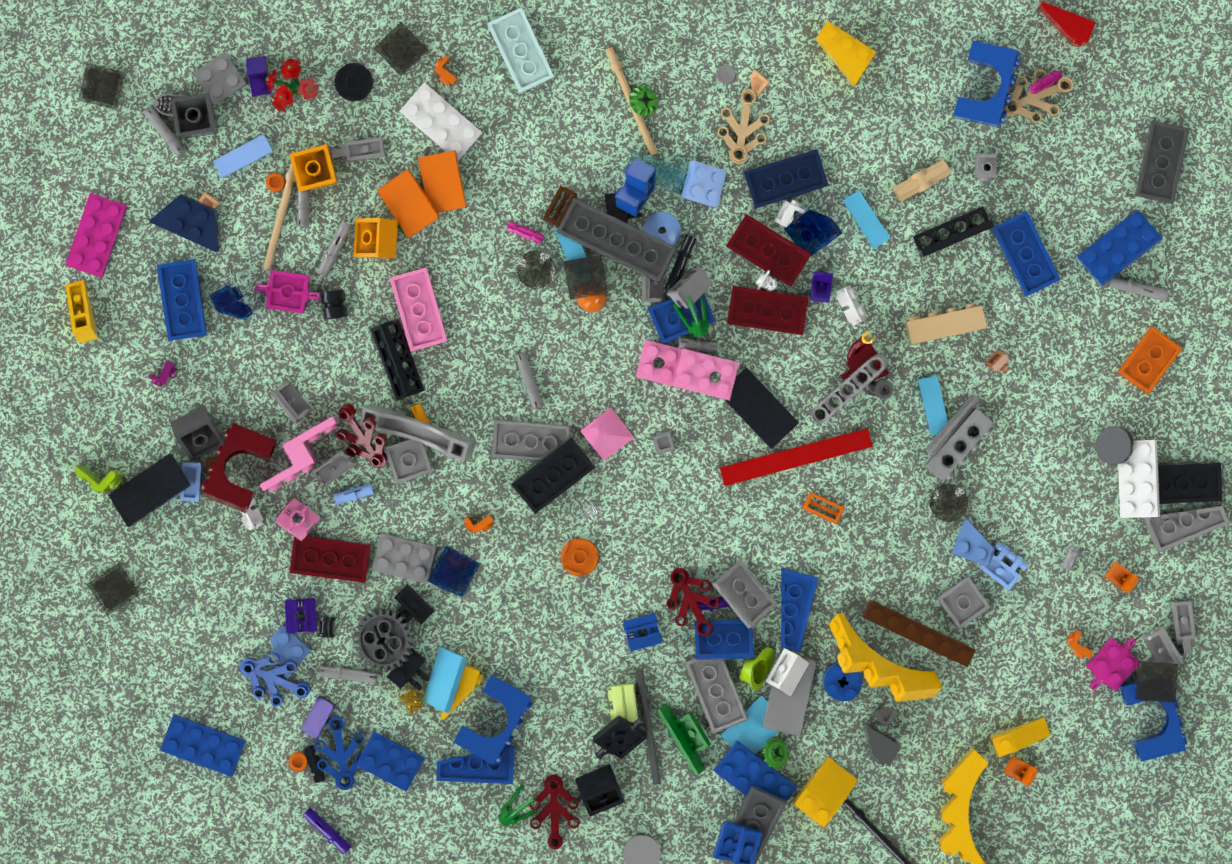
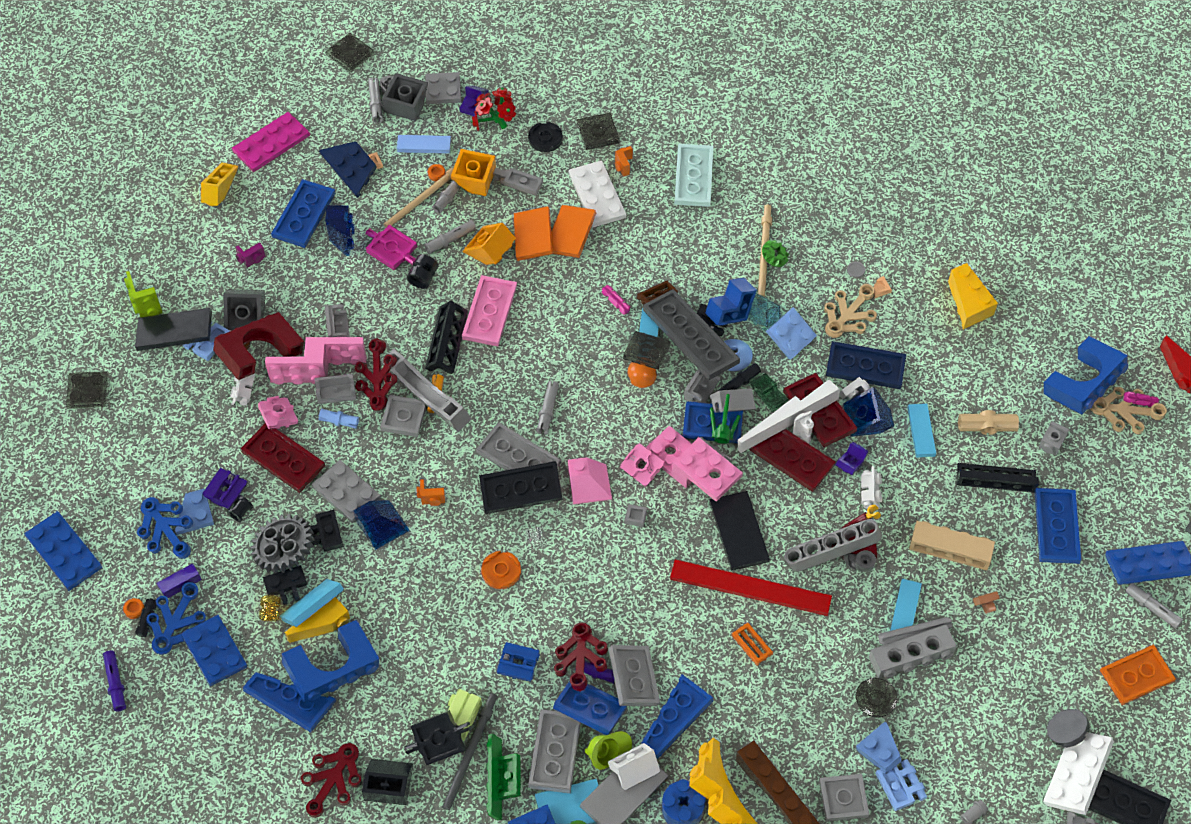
camera: 30 degrees right, 30 degrees down
(347, 674) = (223, 552): light grey pin -> none
(509, 816) = (287, 757): green plant -> none
(526, 265) = (607, 321): clear smoke dish -> none
(638, 383) = (652, 462): none -> bright pink piece
(715, 255) = (768, 392): none -> clear green slope
(749, 274) = (785, 415): none -> white slope

